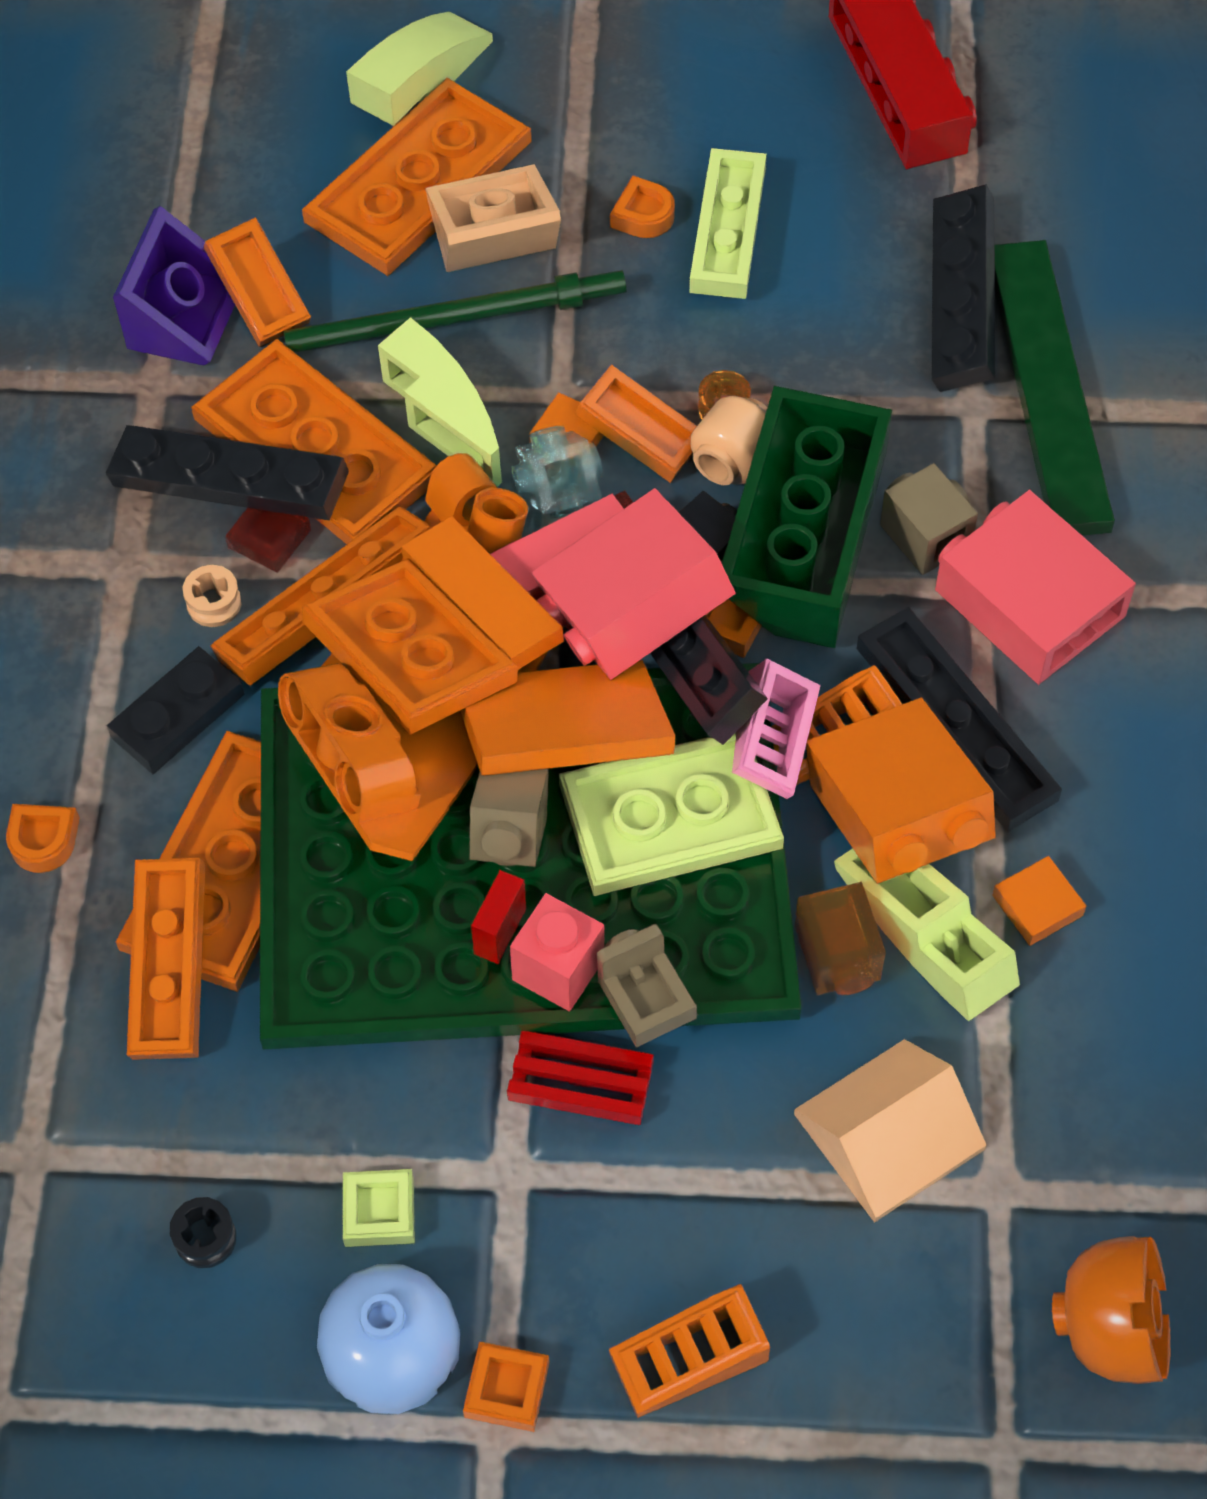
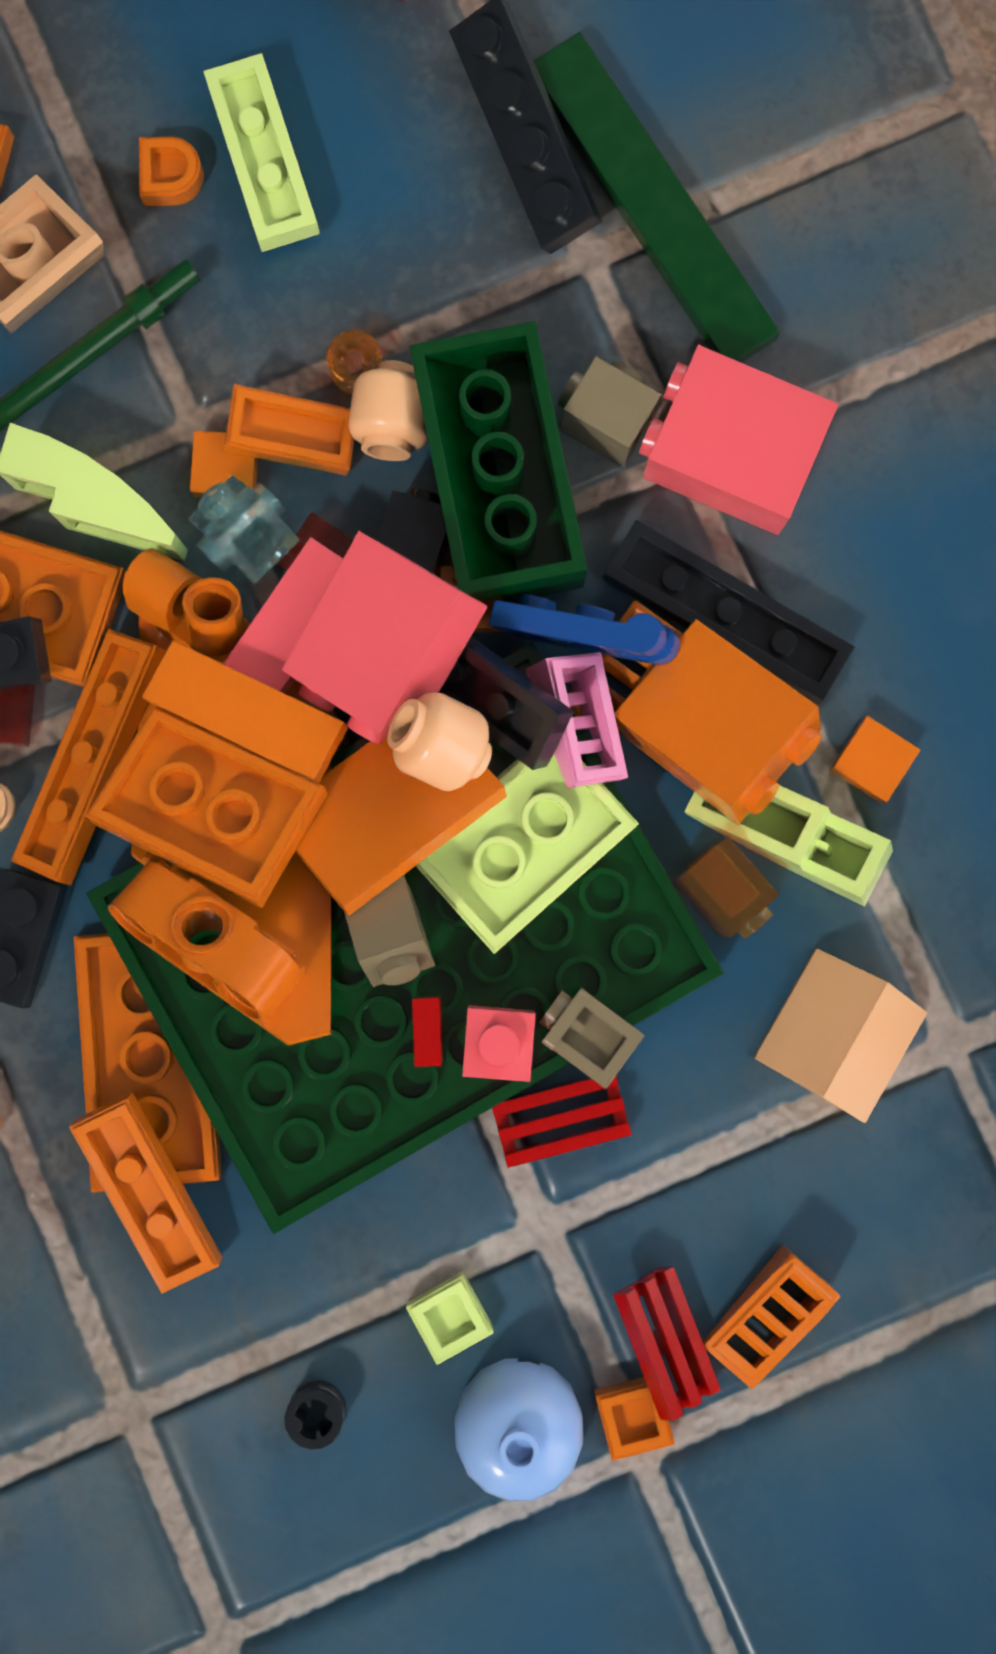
camera: 25 degrees left, 25 degrees up
(586, 1322) = (673, 1336): none -> red tile
(637, 667) = (439, 741): none -> light nougat head
(845, 677) = (589, 630): none -> blue plate

